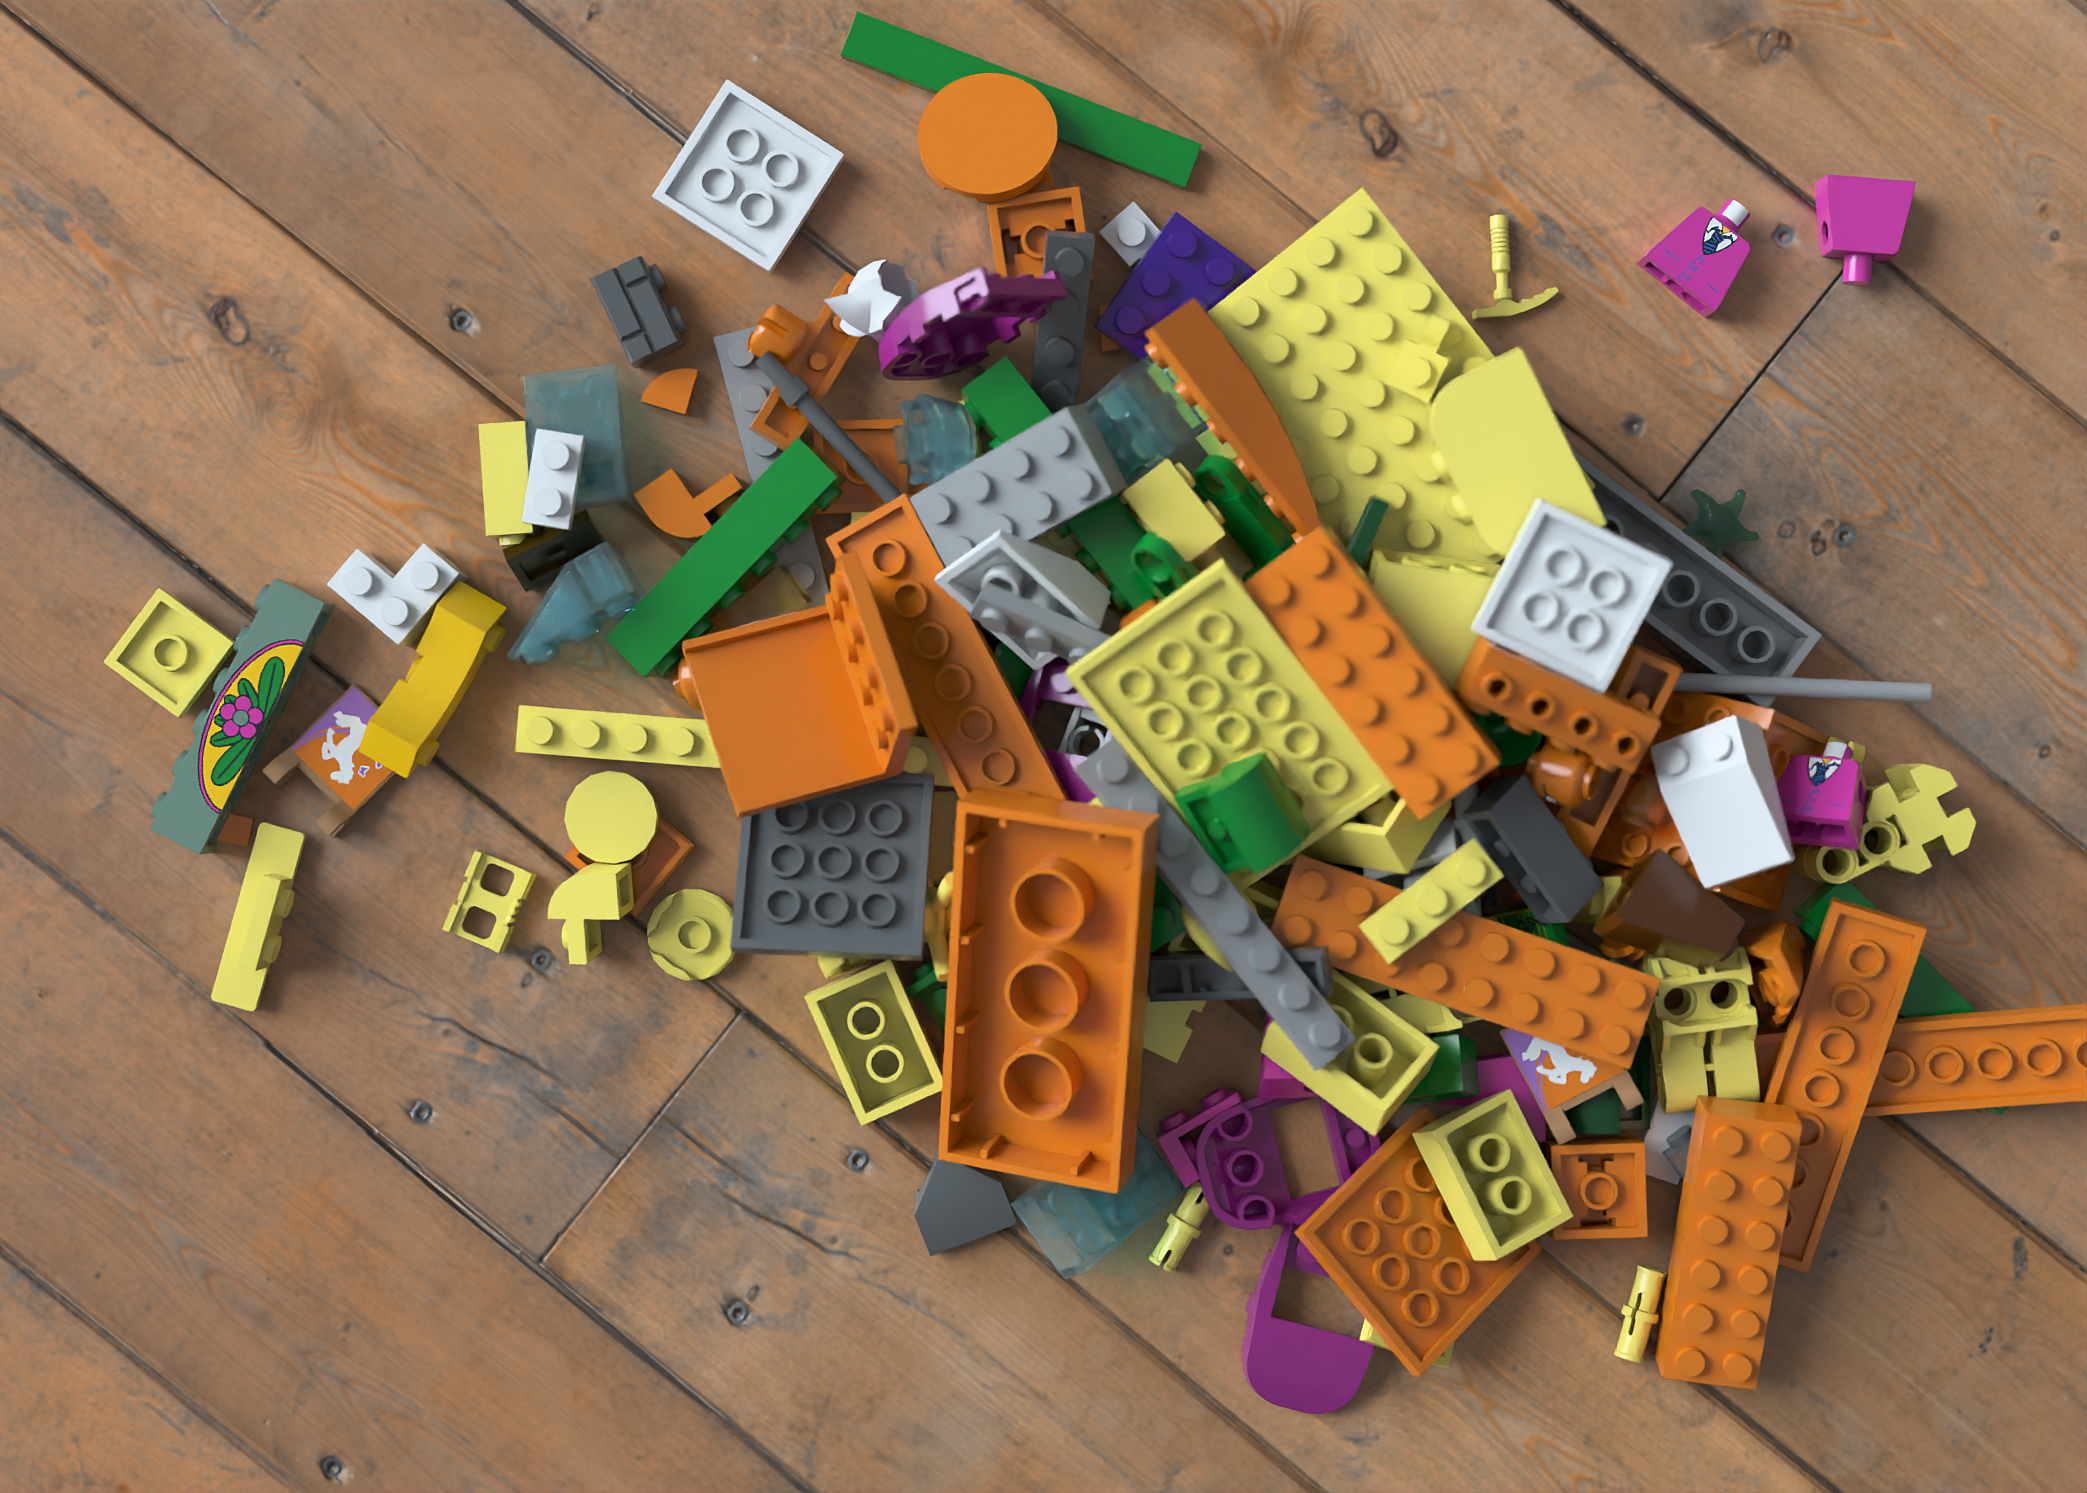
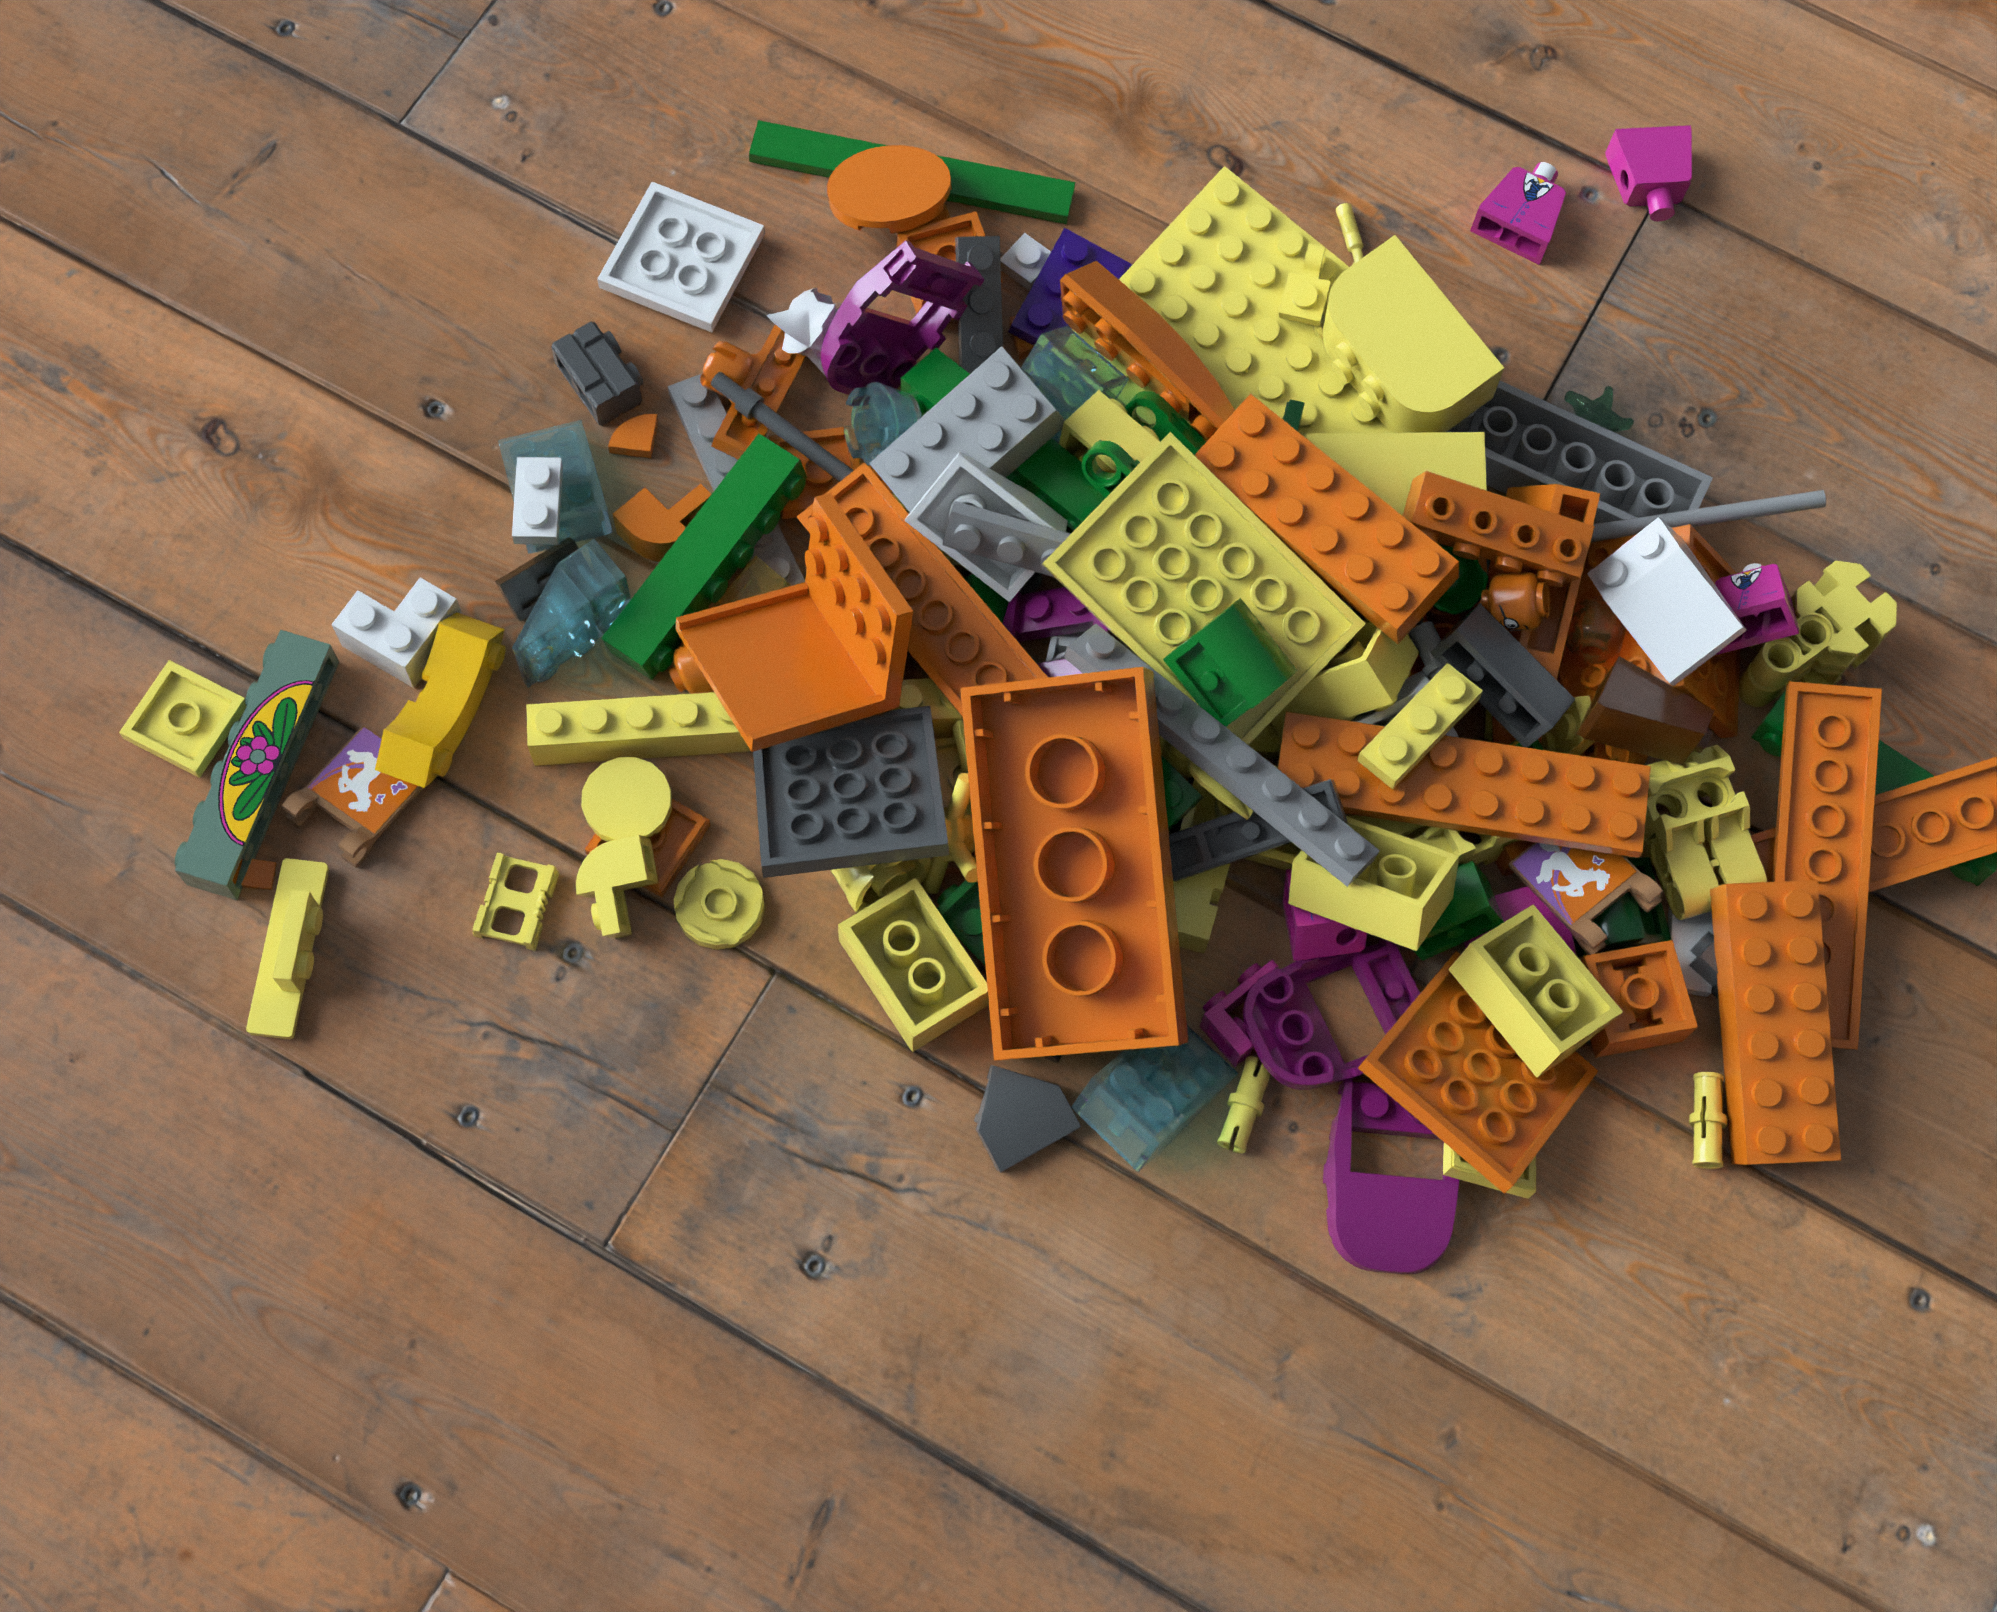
camera: 15 degrees left, 20 degrees down
(505, 481) = (491, 523): light yellow brick -> none
(1571, 595) = (1488, 425): white plate -> none
(1775, 968) = (1756, 754): orange wedge -> none

